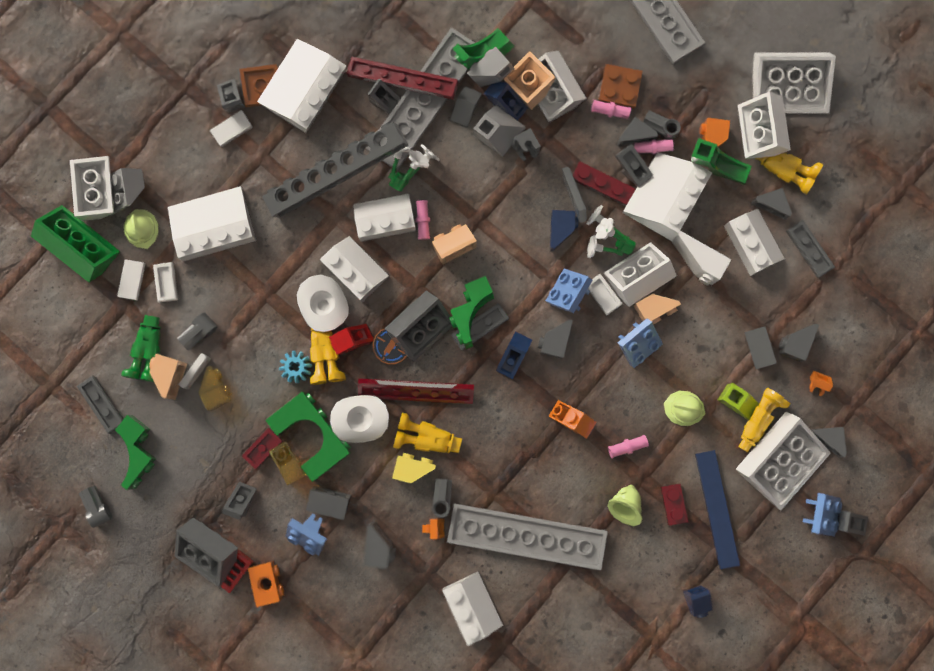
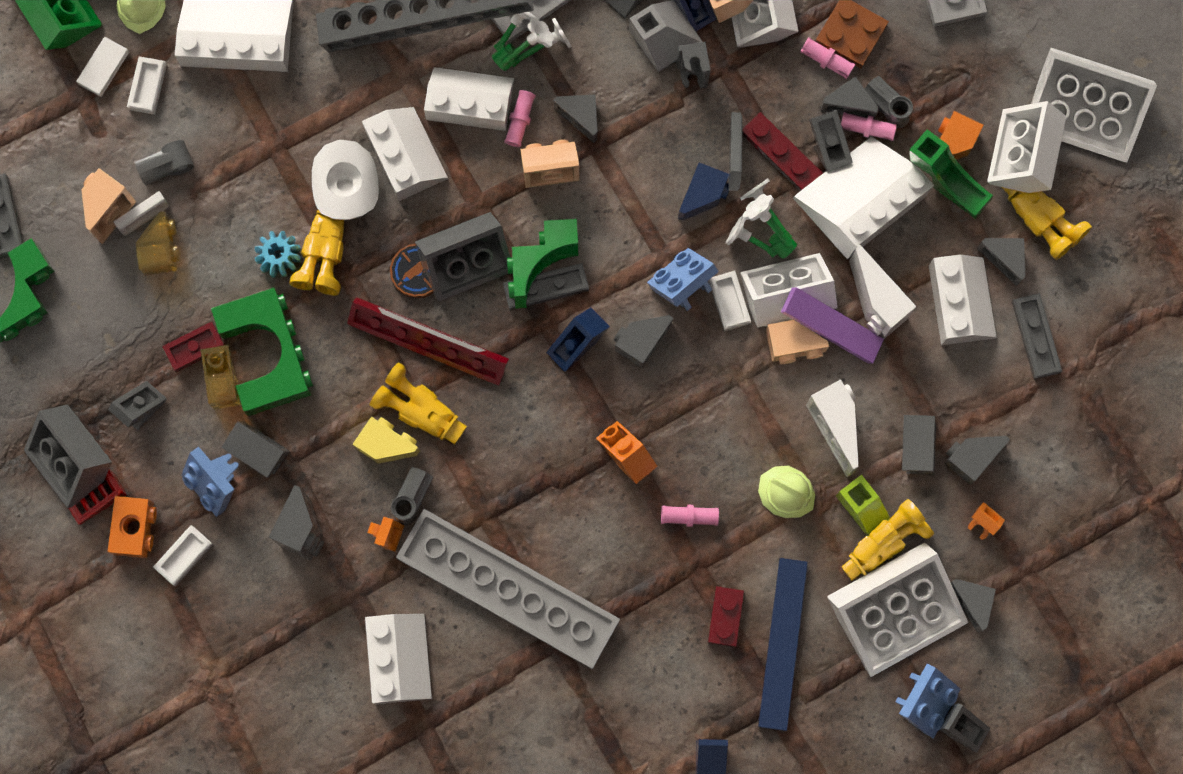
camera: 20 degrees right, 5 degrees down
(144, 347) = (87, 158): green piece -> none
(306, 589) = (183, 555): none -> white tile
(351, 338) = (365, 240): red slope -> none
(359, 418) = (337, 351): white hat -> none
(461, 202) = (580, 112): none -> dark grey slope
(626, 506) = (658, 594): yellowish green piece -> none
(640, 342) = (755, 380): medium blue plate -> none
(677, 289) = (832, 325): none -> medium lavender tile
(704, 352) = (835, 417): none -> white slope

